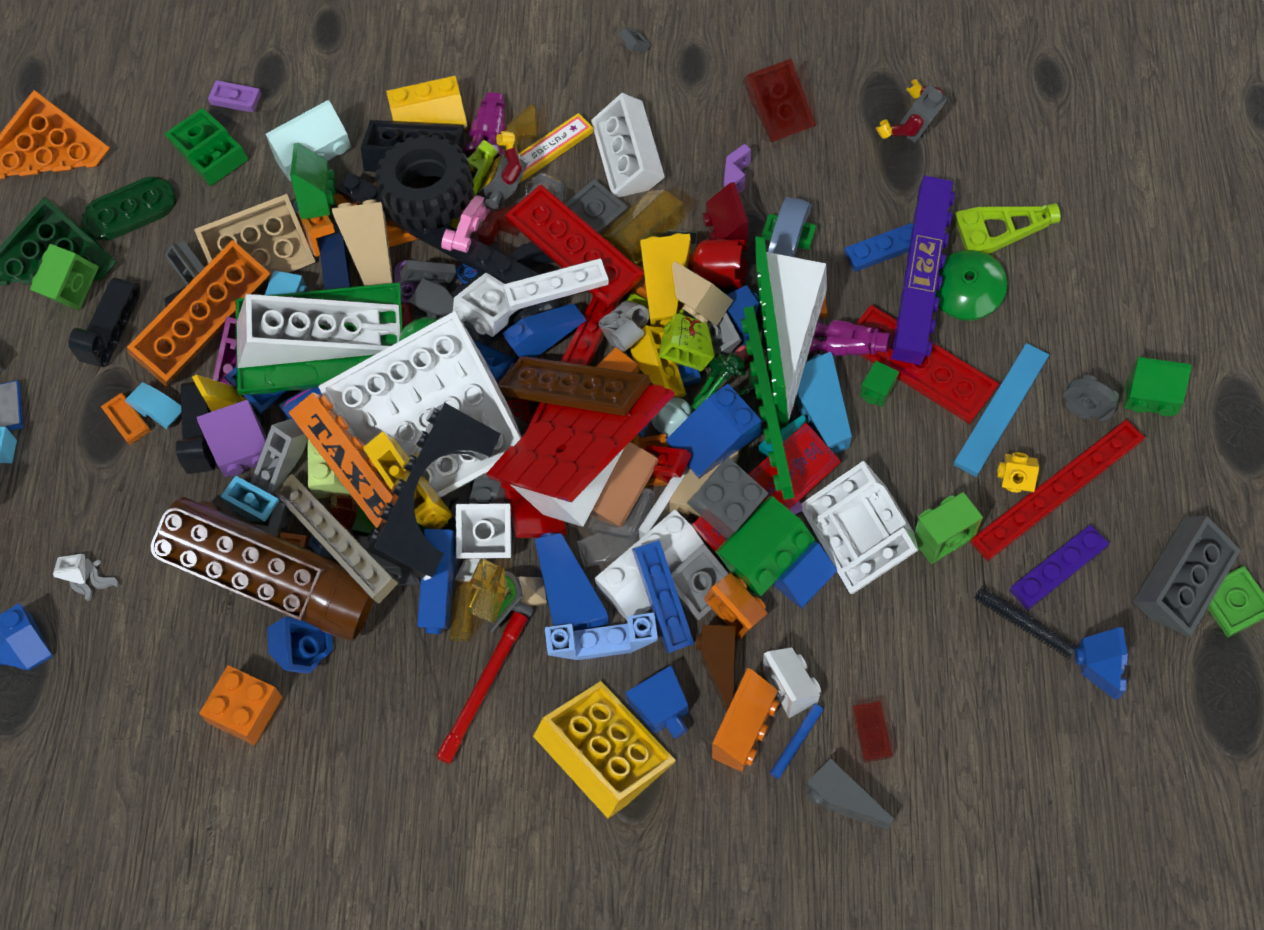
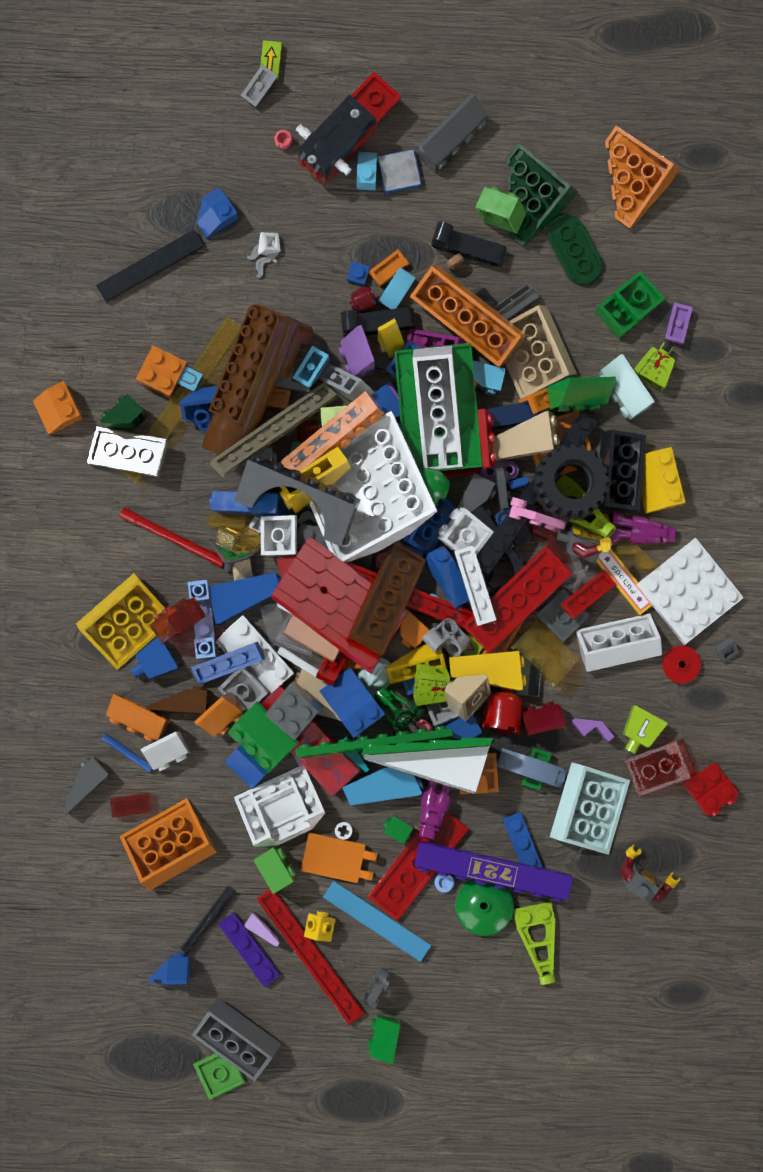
camera: 85 degrees right, 20 degrees up
(82, 733) = (150, 266): none -> black tile
(125, 335) = (454, 262): none -> medium nougat tile
(128, 456) = (358, 273): none -> blue plate
(162, 443) = (363, 300): none -> dark red head
(254, 662) = (190, 379): none -> medium azure tile
(281, 858) = (57, 408): none -> orange slope
(282, 109) = (656, 366): none -> lime torso
(292, 685) = (205, 365): none -> clear yellow plate
(298, 752) = (124, 415): none -> dark green slope
(354, 750) = (127, 452): none -> tile
(363, 279) = (487, 439): none -> red plate
(423, 252) = (517, 484): none -> blue tile
(564, 78) = (689, 591): none -> white plate
(576, 185) = (588, 594): none -> red plate
(602, 663) = (177, 619): none -> clear red brick
(653, 86) = (671, 661): none -> red plate
(733, 121) = (642, 729): none -> lime torso
(806, 49) = (711, 789): none -> red plate
(834, 174) = (589, 808): none -> light aqua slope
(878, 449) = (349, 828): none -> white bush
(923, 460) = (336, 858): none -> orange tile
(924, 678) = (167, 844): none -> orange slope
(943, 333) = (444, 883): none -> light blue tile
(1025, 554) = (257, 926): none -> lavender slope

